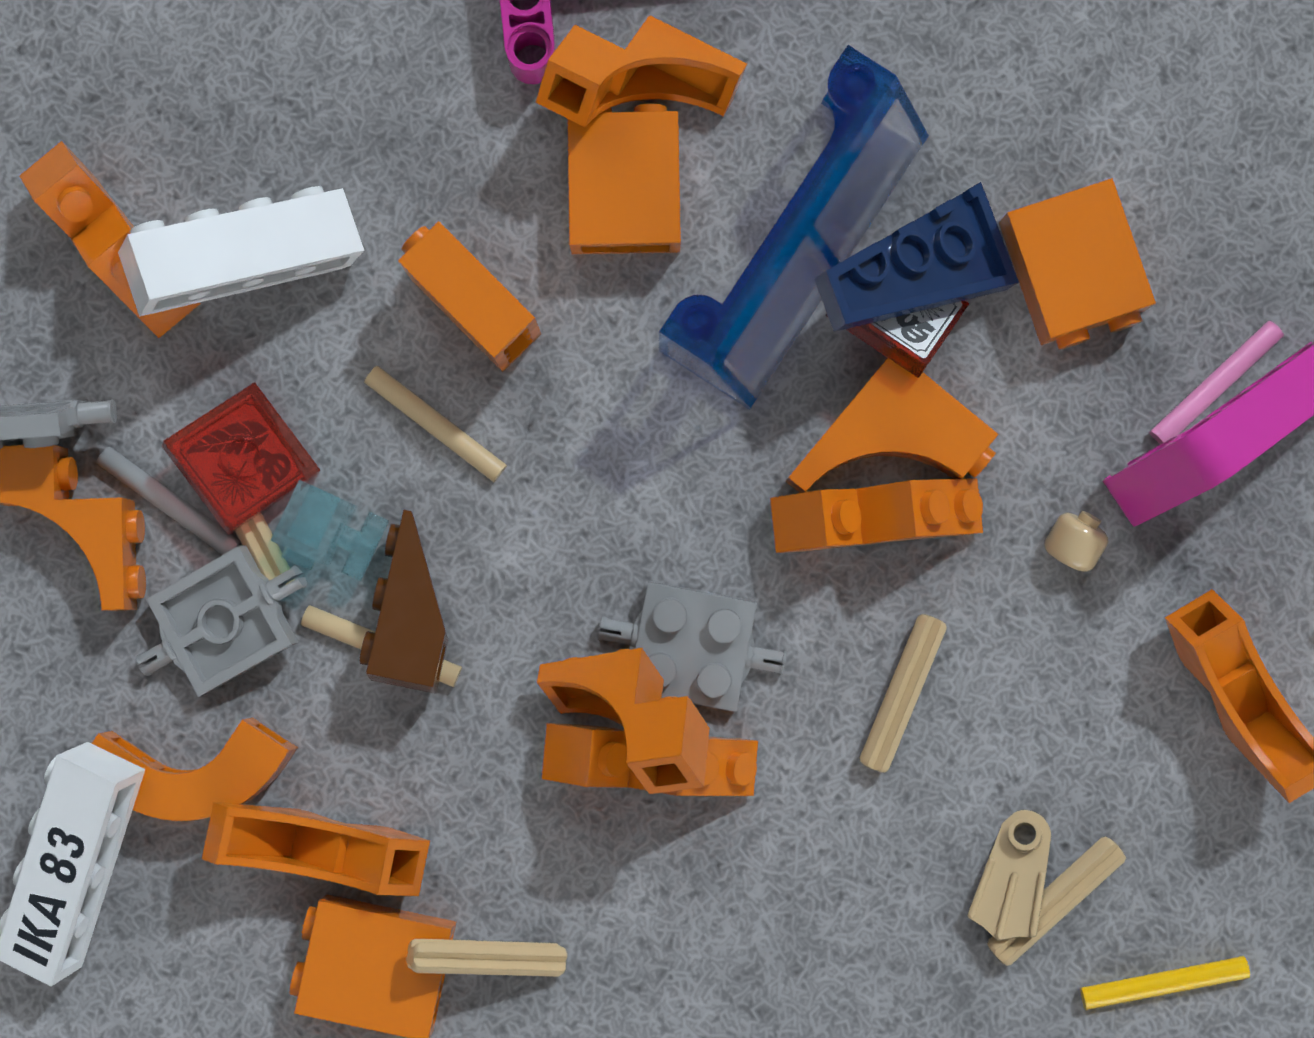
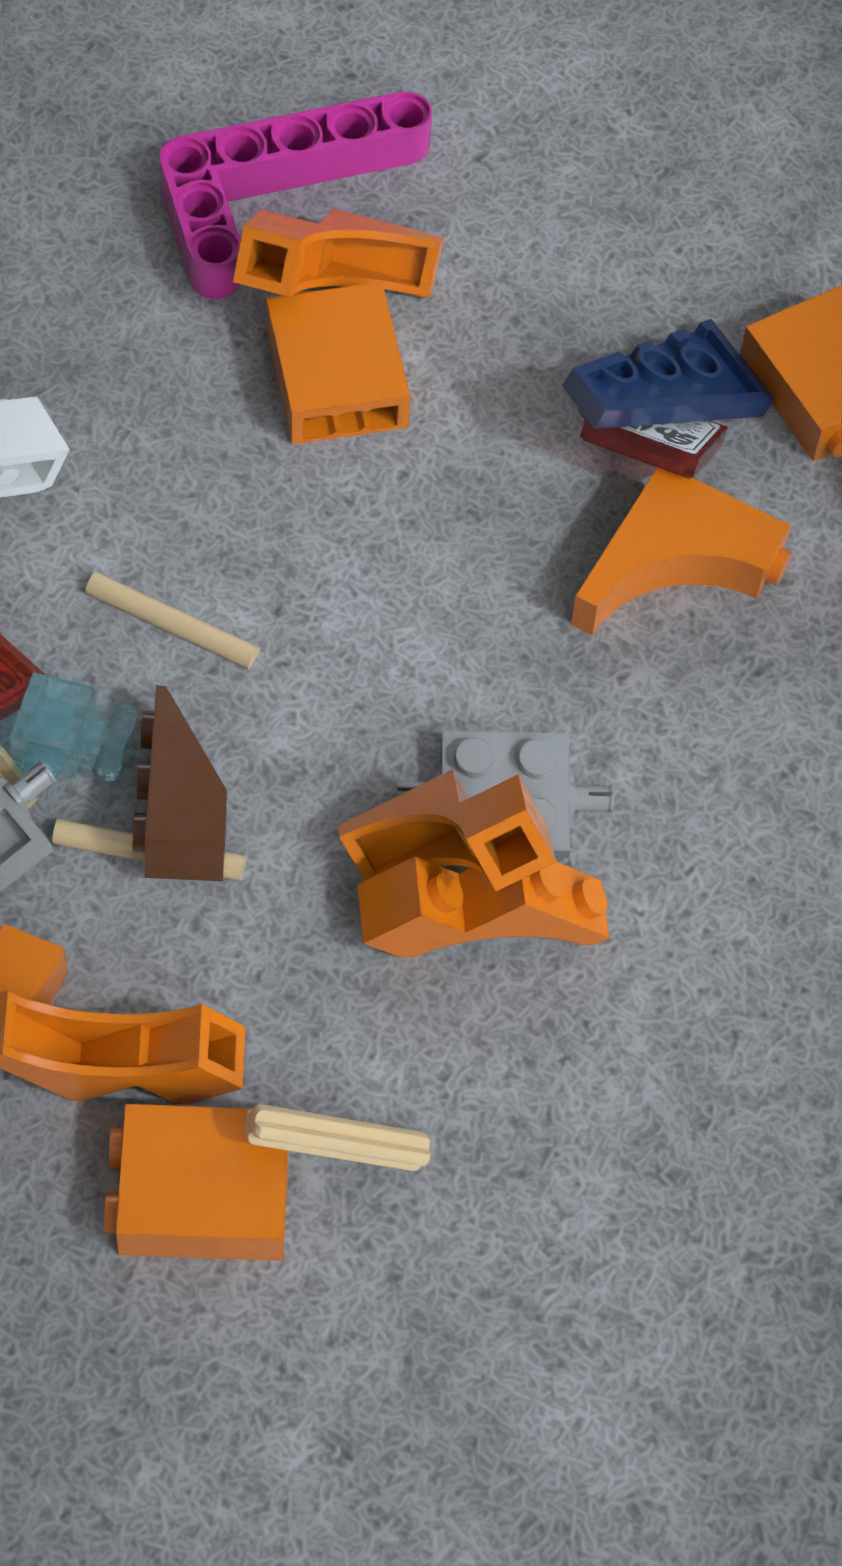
camera: 15 degrees left, 25 degrees down
(469, 294) = (194, 472): orange brick -> none
(870, 149) = (493, 465): windscreen -> none
(876, 514) = (704, 612): orange arch -> none
(903, 693) = (752, 809): tan axle -> none

